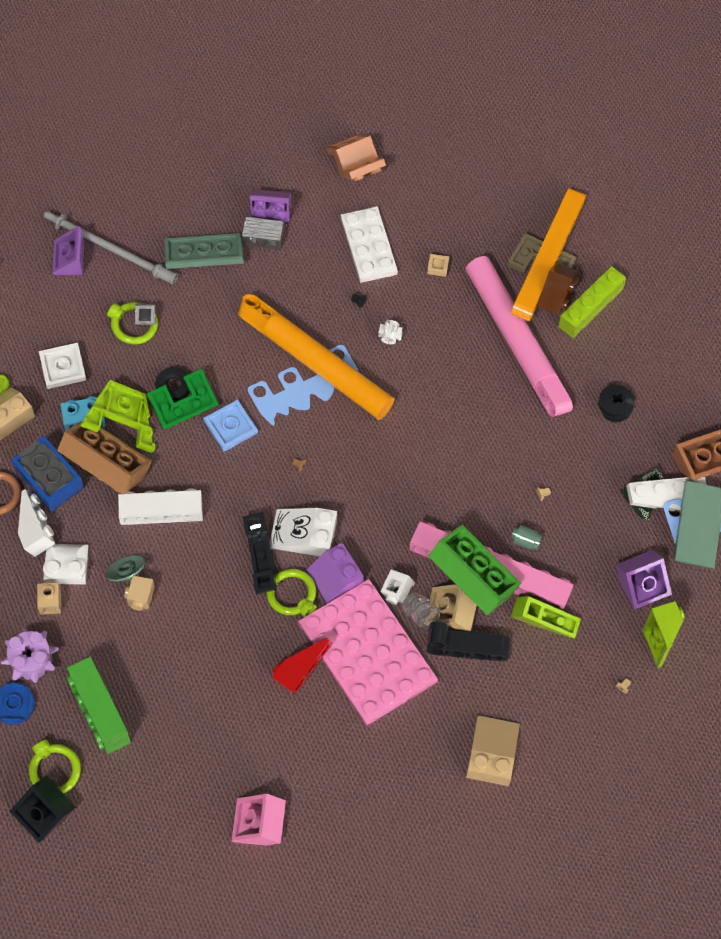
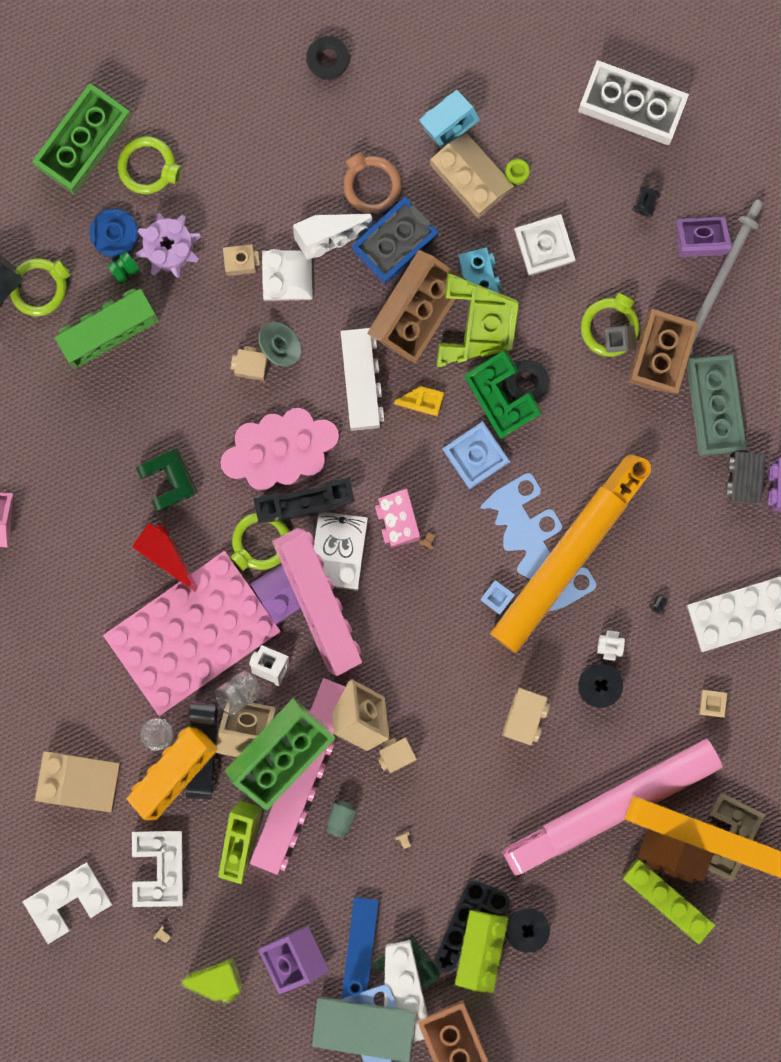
camera: 90 degrees right, 20 degrees up
(35, 291) = (646, 201): none -> black bush
(45, 694) = (128, 265): none -> green wheel
(158, 283) = (662, 352): none -> medium nougat slope
(181, 463) = (422, 400): none -> yellow tile
(214, 575) = (279, 449): none -> bright pink plate
(230, 656) = (177, 475): none -> dark green connector
(279, 479) = (398, 519): none -> bright pink slope
(346, 538) = (317, 601): none -> bright pink brick
(348, 413) = (497, 597): none -> light blue plate
(421, 341) = (602, 698): none -> black piece
(444, 514) = (361, 716): none -> tan slope
(446, 392) = (525, 717): none -> tan brick
(454, 678) = (157, 734): none -> clear wheel
(474, 492) = (395, 755): none -> tan brick
(488, 663) = (171, 773): none -> light orange brick
(551, 676) = (169, 853): none -> white plate
(581, 753) = (45, 903): none -> white plate
(614, 446) = (456, 924): none -> black beam
(633, 529) = (360, 946): none -> blue piece
(635, 428) = (481, 951): none -> lime slope

